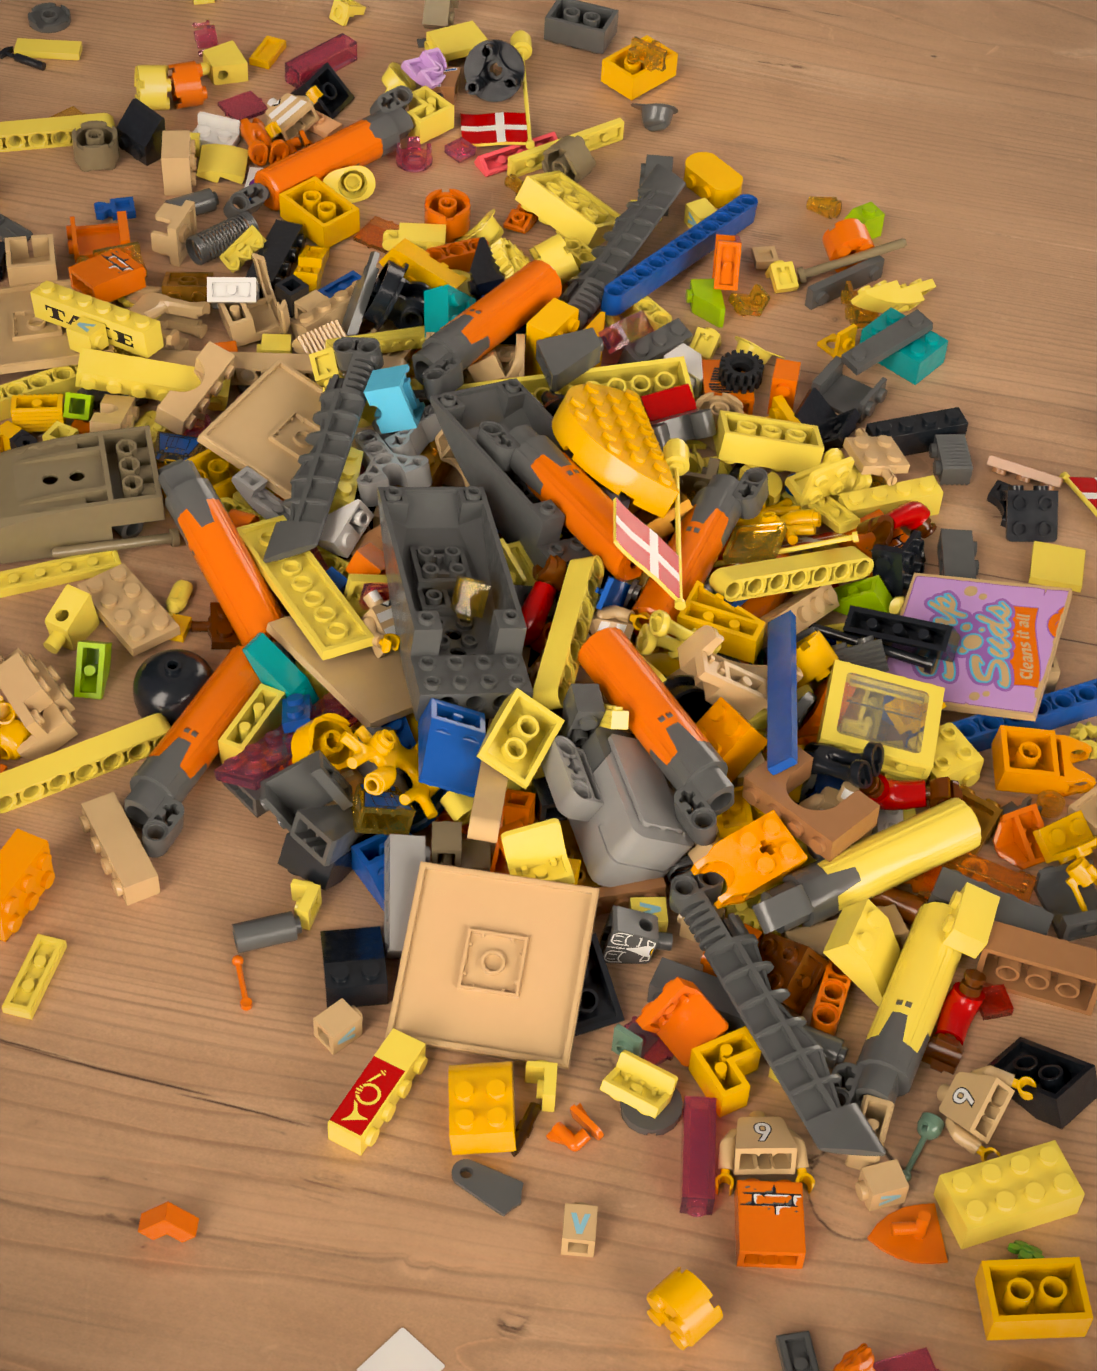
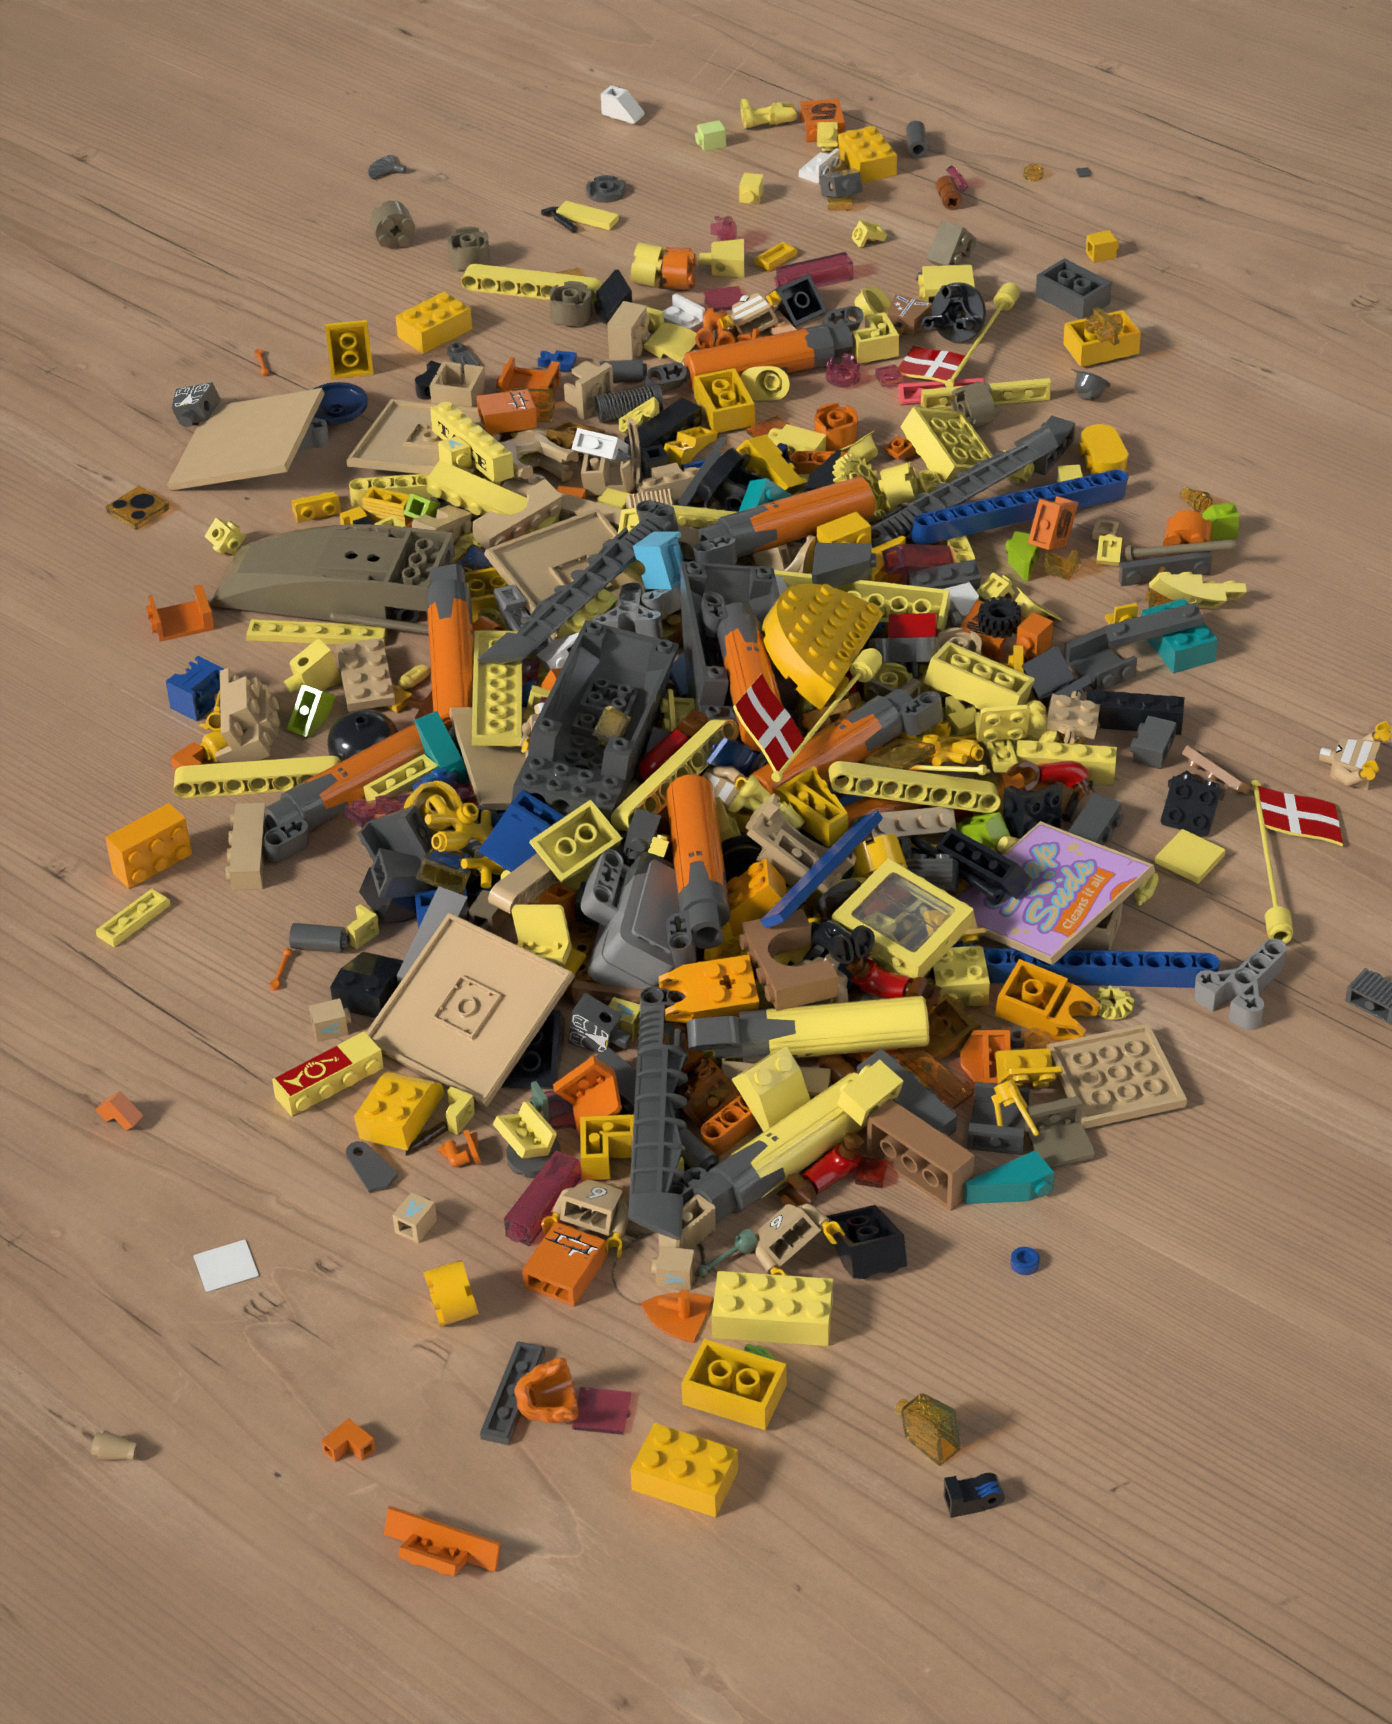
camera: 30 degrees right, 5 degrees down
(427, 68) = (899, 298): lavender brick -> none

